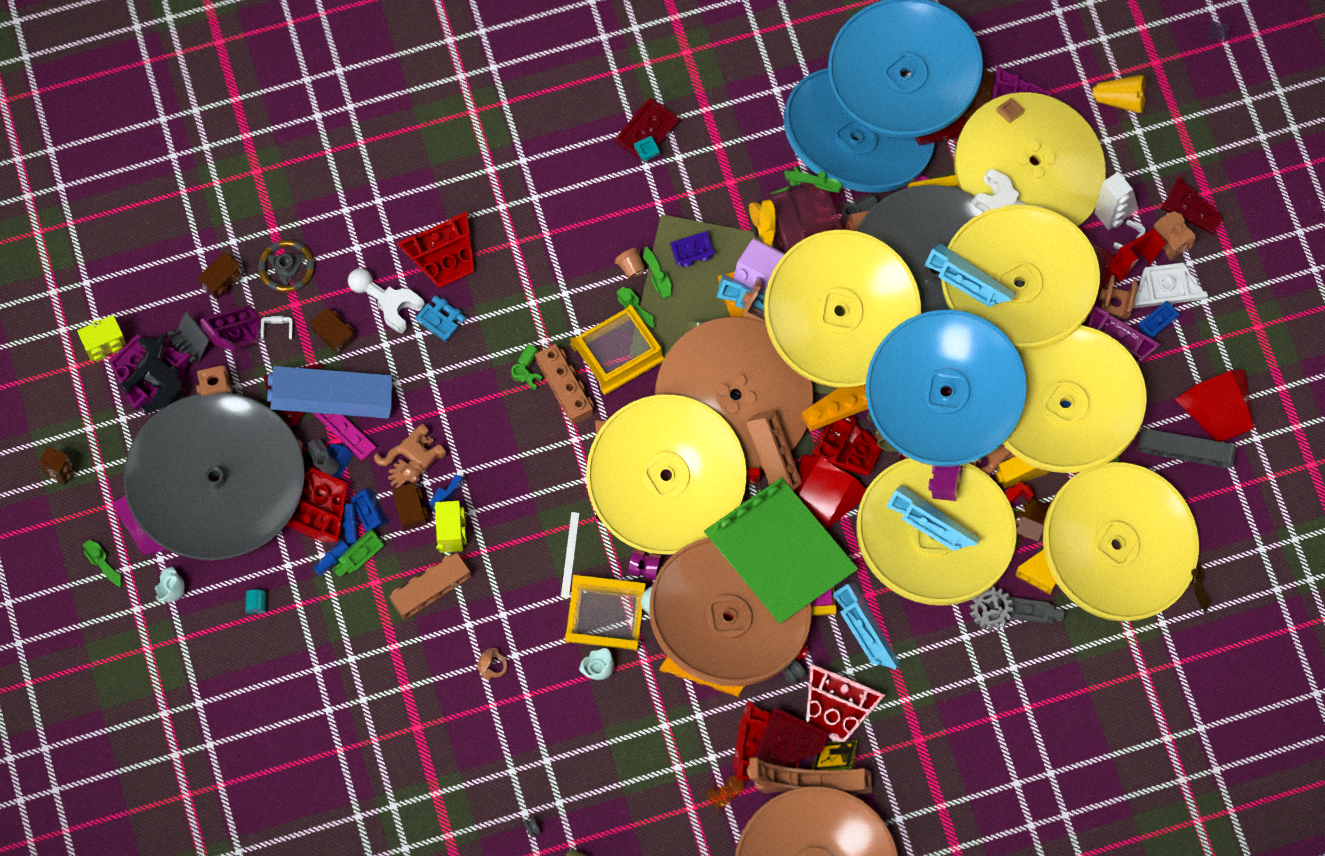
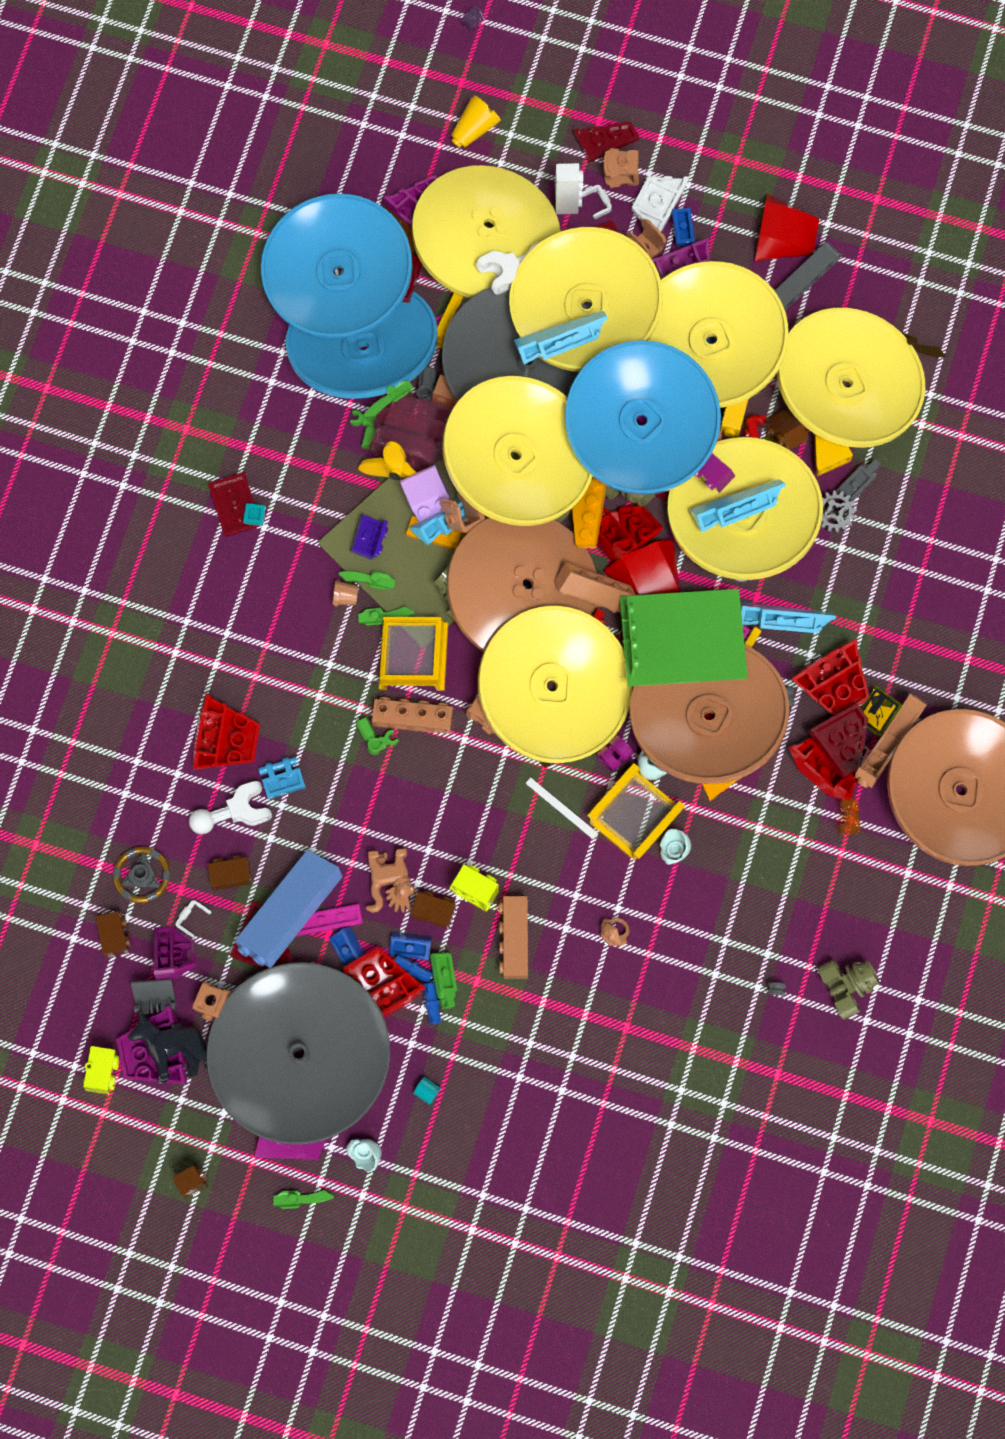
camera: 55 degrees left, 5 degrees up
(321, 457) = (339, 953): dark grey piece -> none
(447, 495) = (441, 877): blue slope -> none
(1010, 110) = (433, 212): medium nougat tile -> none
(1148, 245) = (620, 203): red panel -> none

